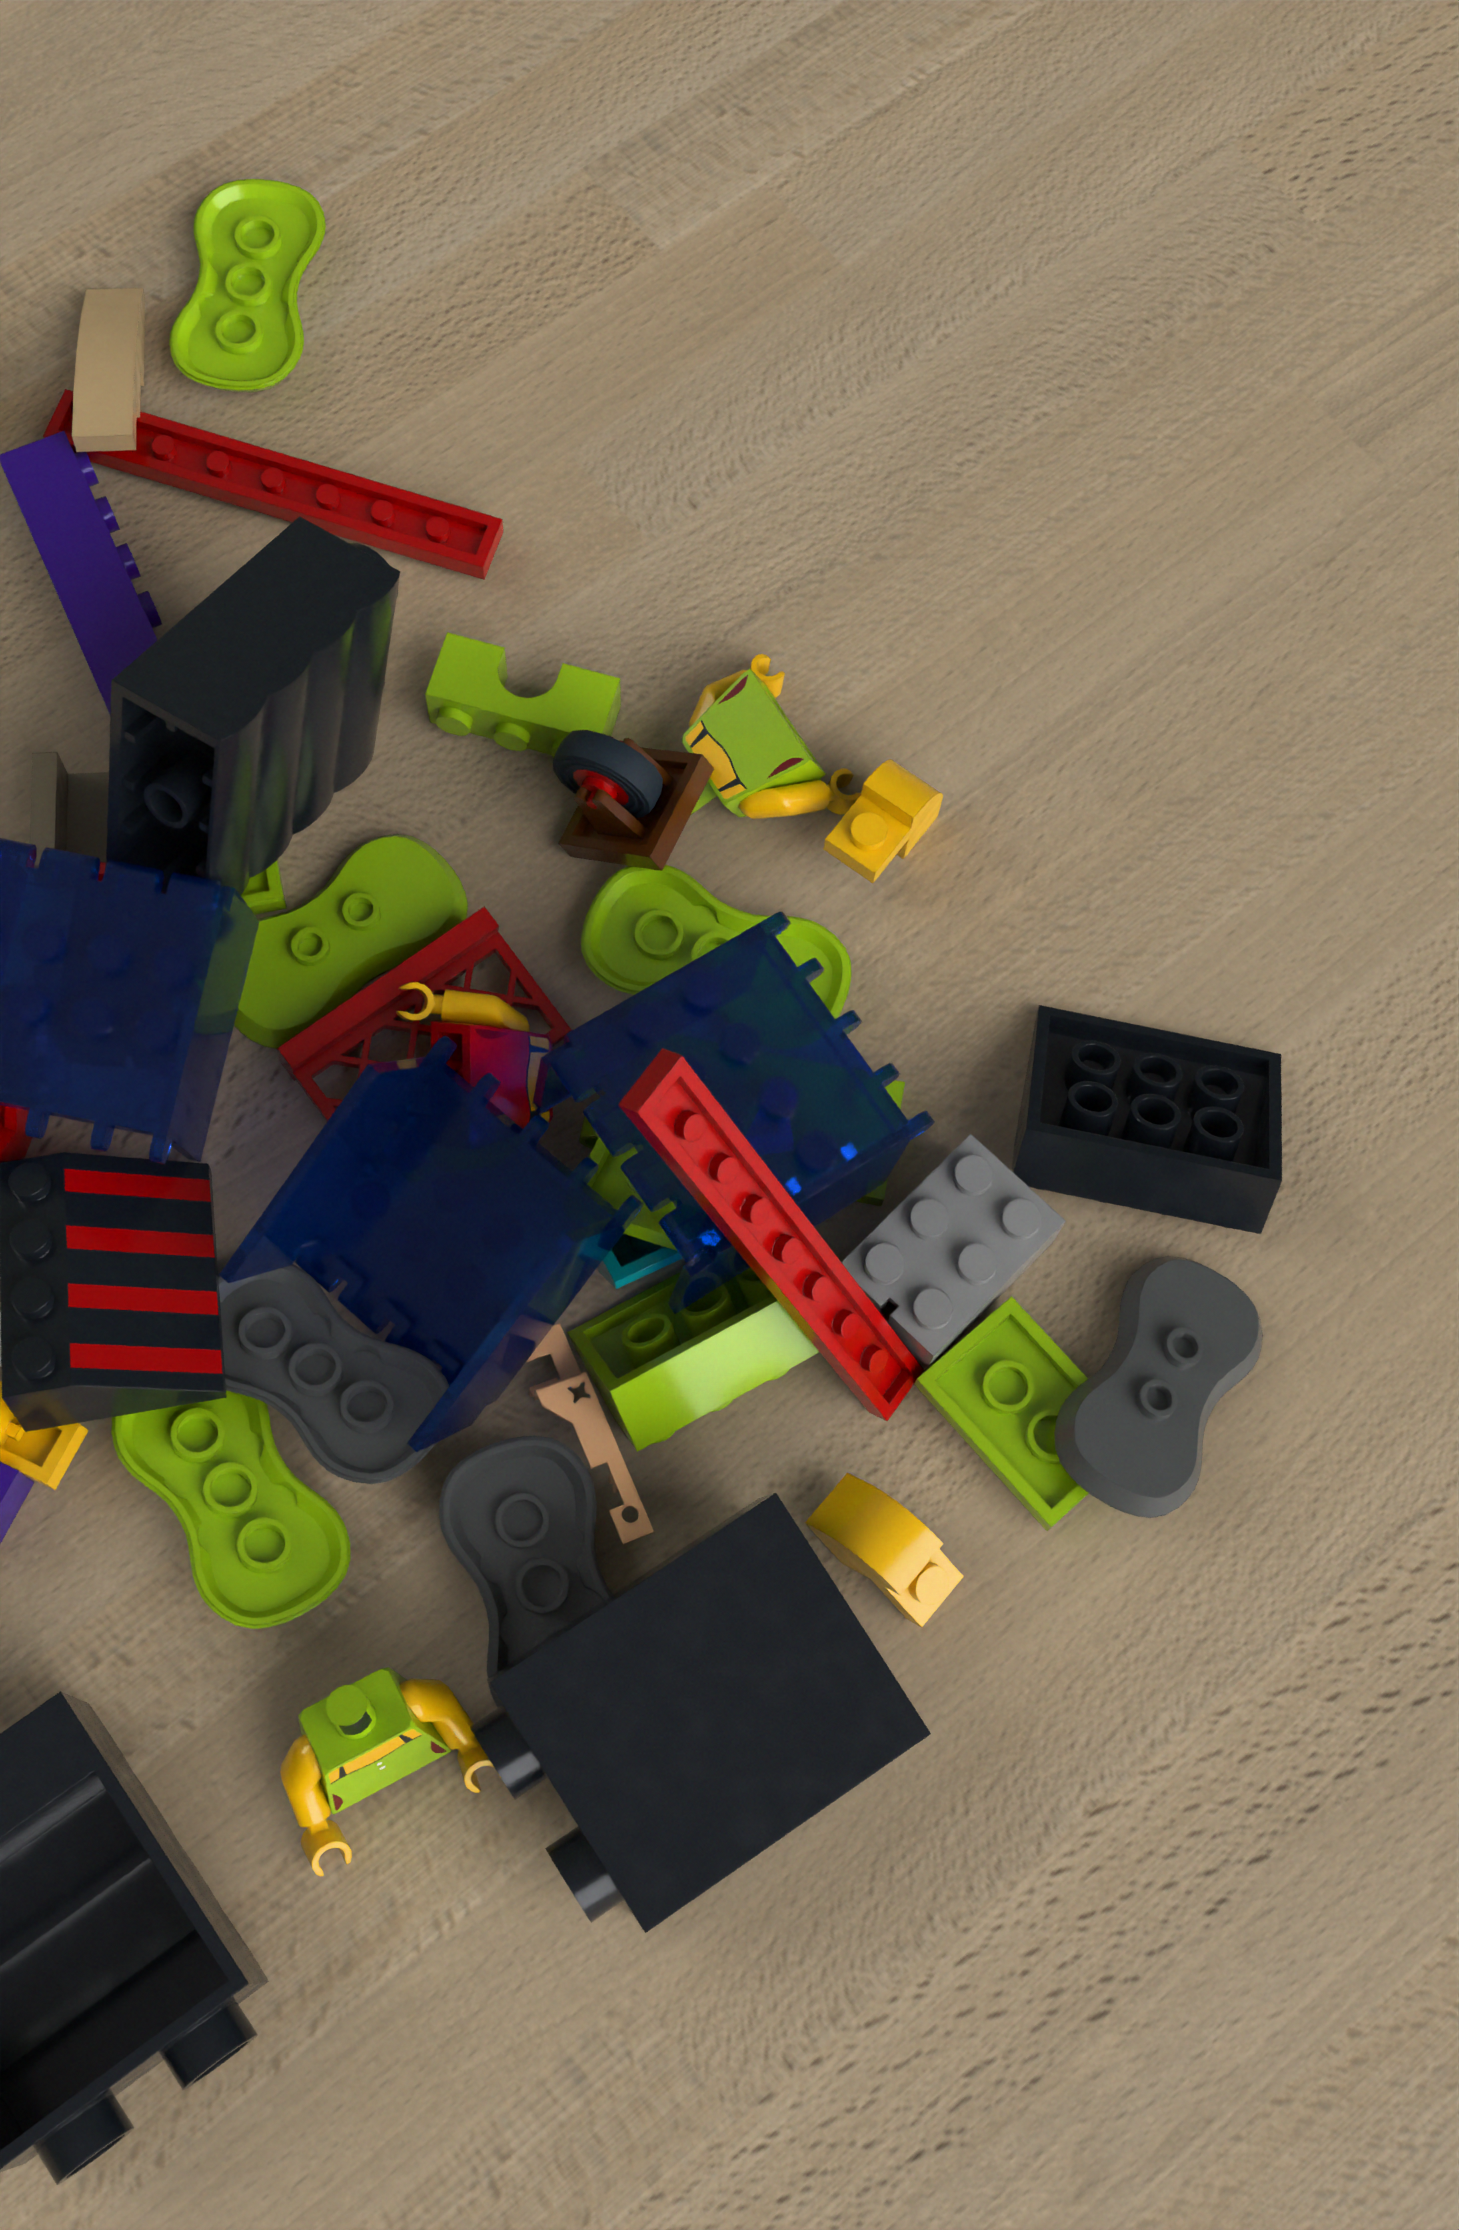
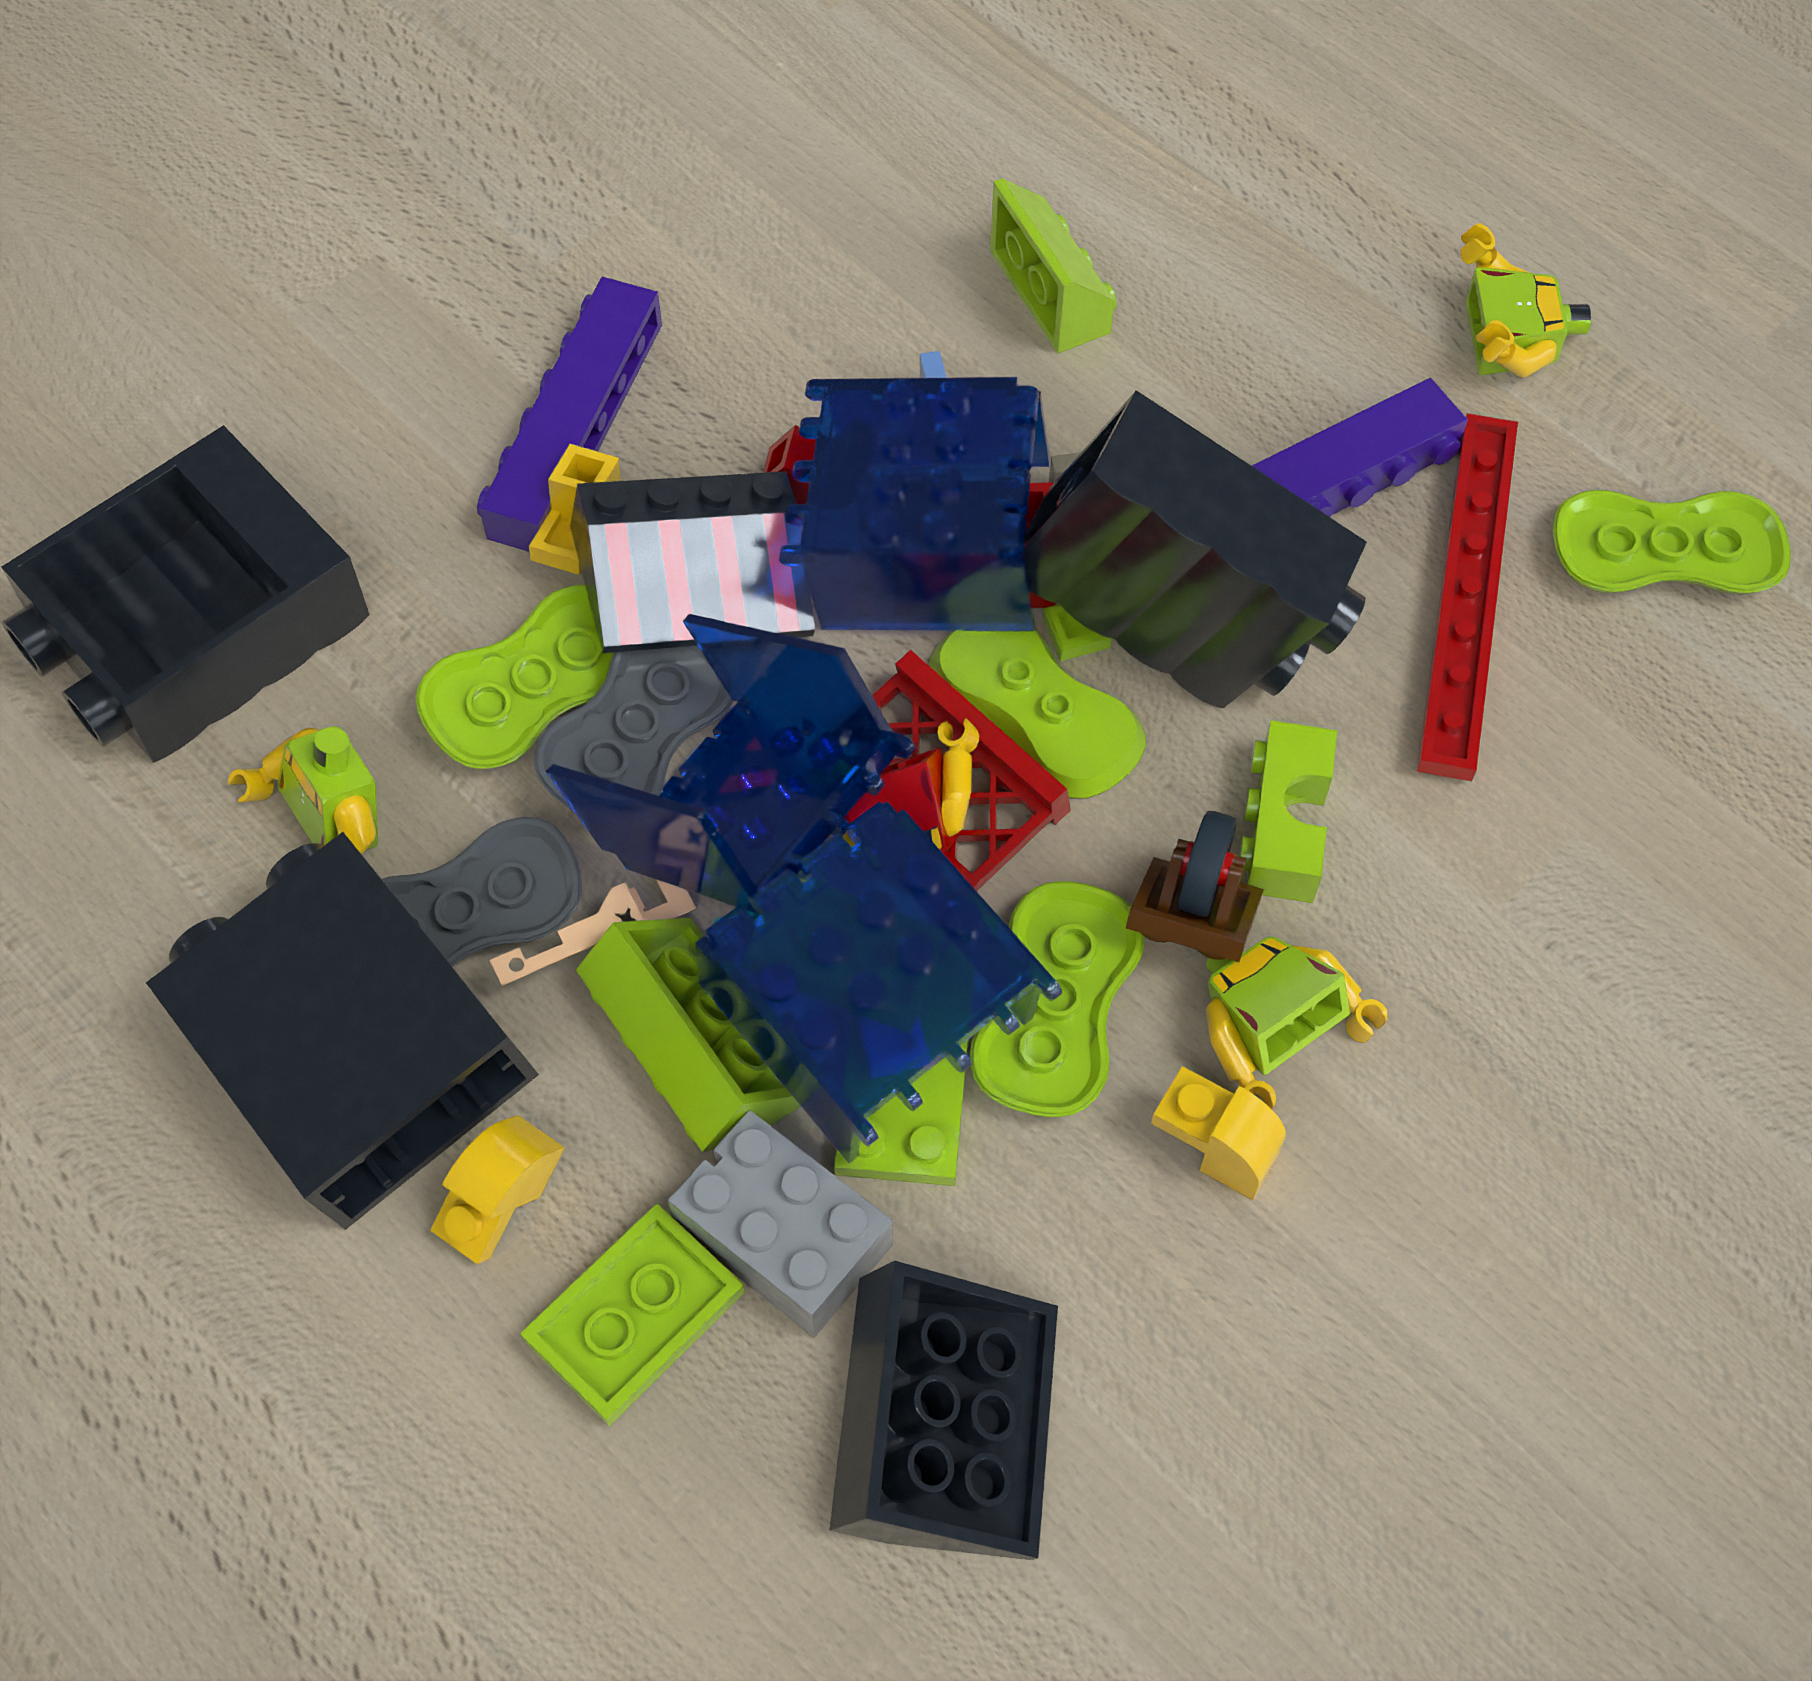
camera: 90 degrees right, 10 degrees down
(109, 370) = (1547, 445): tan slope -> none
(770, 1231) = (724, 985): red plate -> none
(1142, 1418) = (709, 1456): dark grey plate -> none

